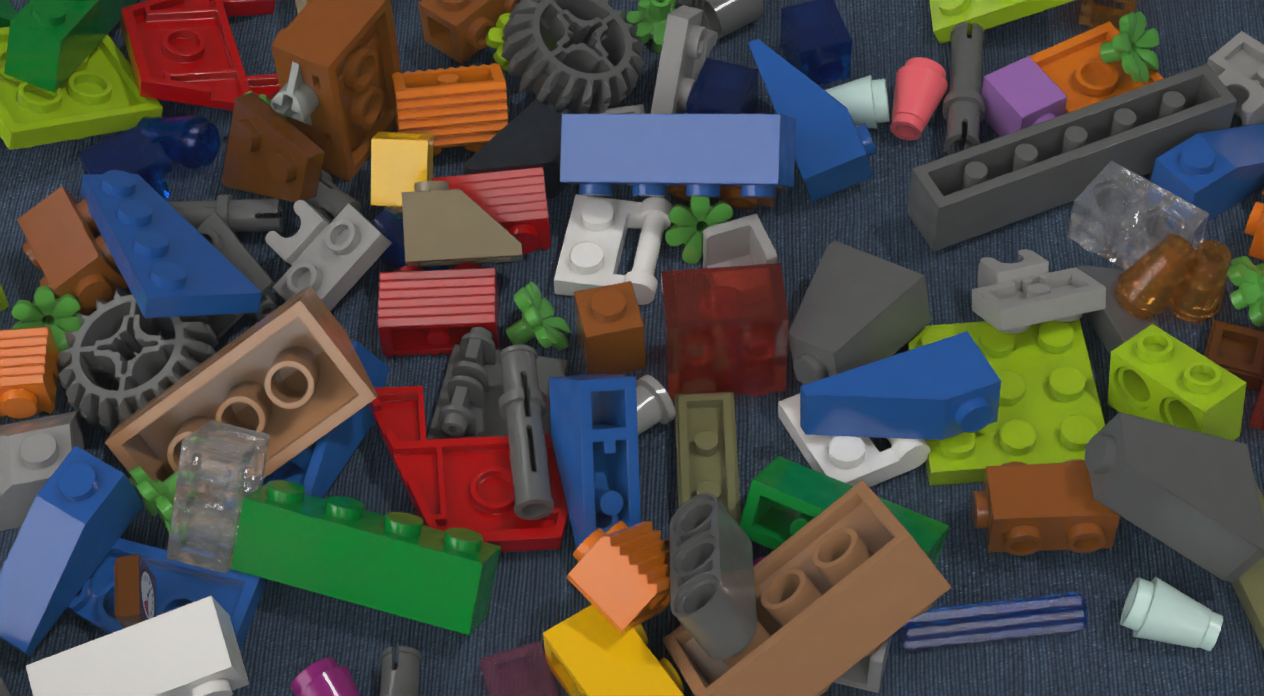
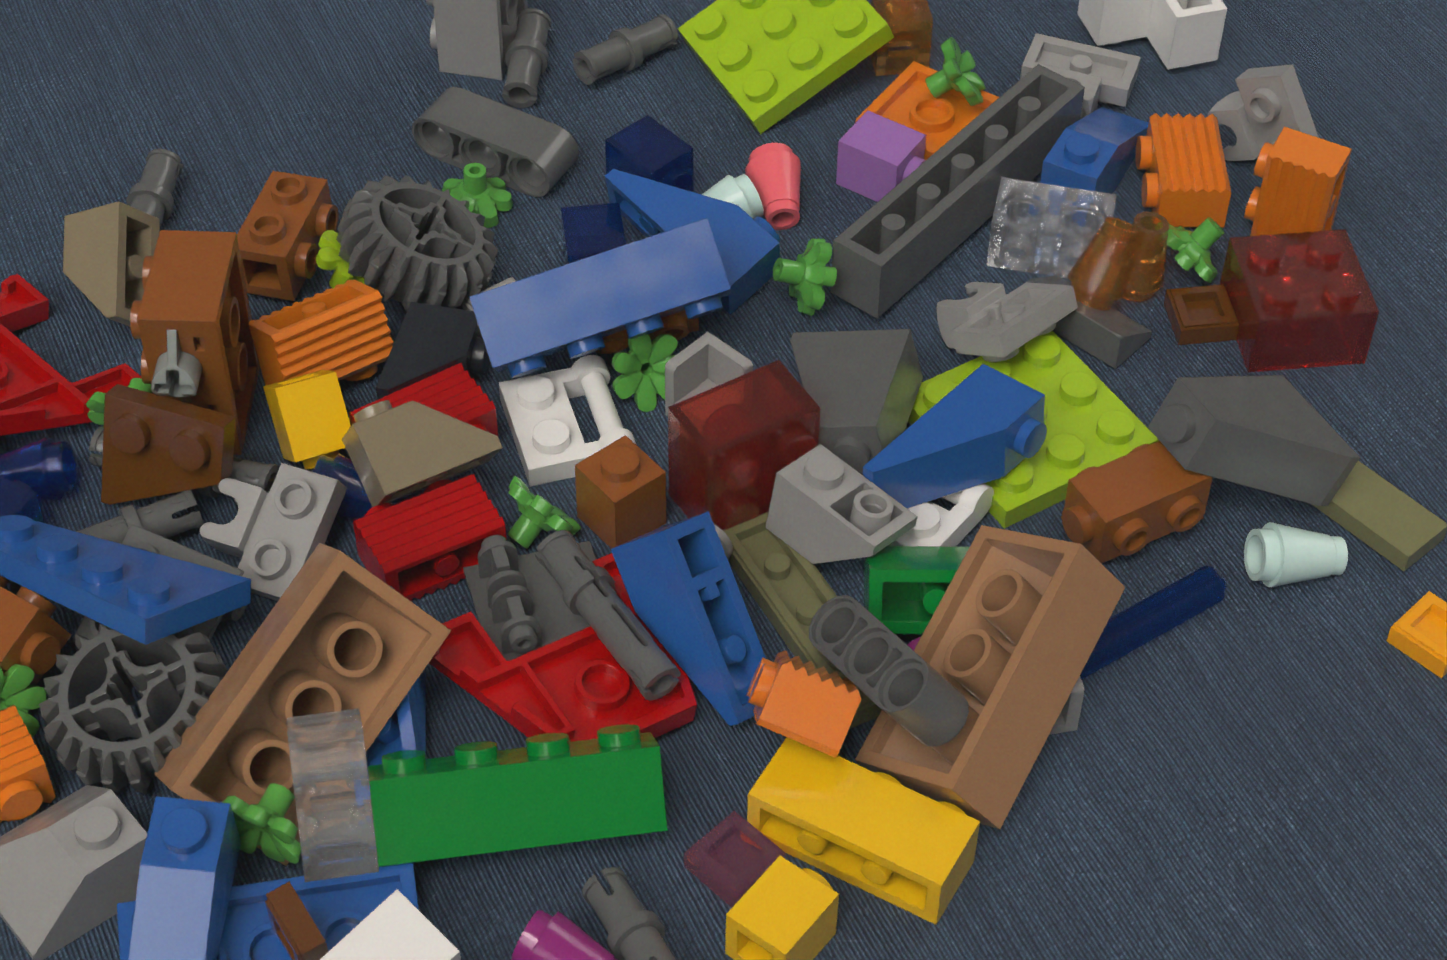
camera: 30 degrees left, 5 degrees down
(681, 59) = (536, 217): light grey plate -> none
(765, 412) = (833, 510): none -> light grey slope
(885, 189) = (808, 275): none -> bright green plant
(964, 104) = (824, 174): dark grey pin -> none
(1174, 385) = (1165, 344): lime brick -> none

